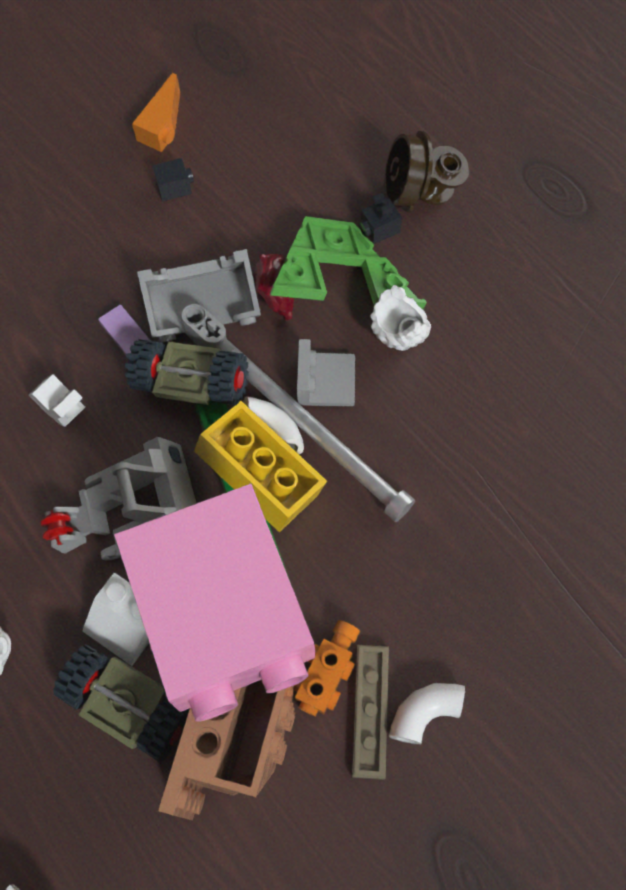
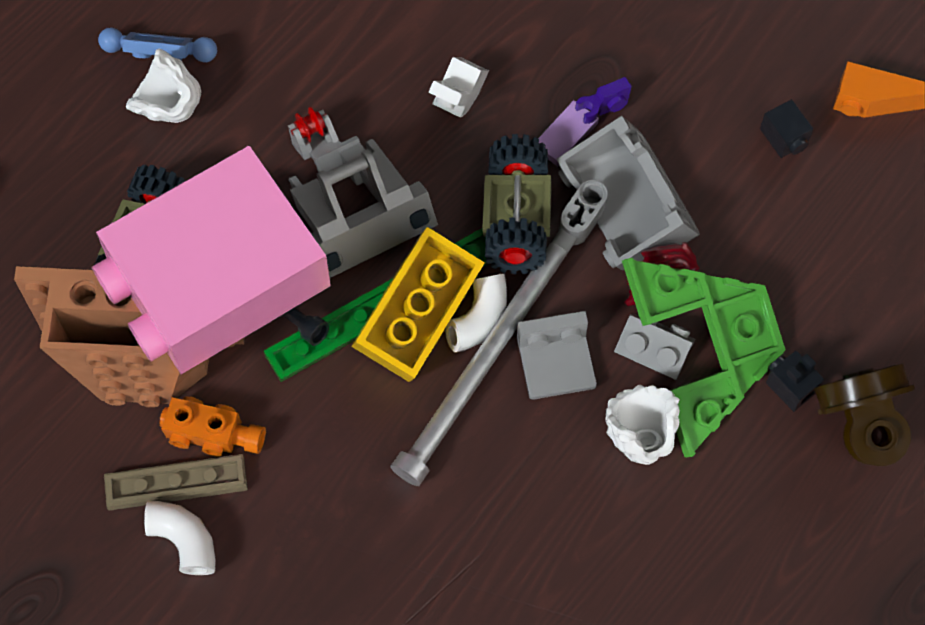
camera: 75 degrees right, 0 degrees up
(107, 290) = (607, 98): none -> dark purple plate
(330, 312) = (655, 345): none -> light grey bracket

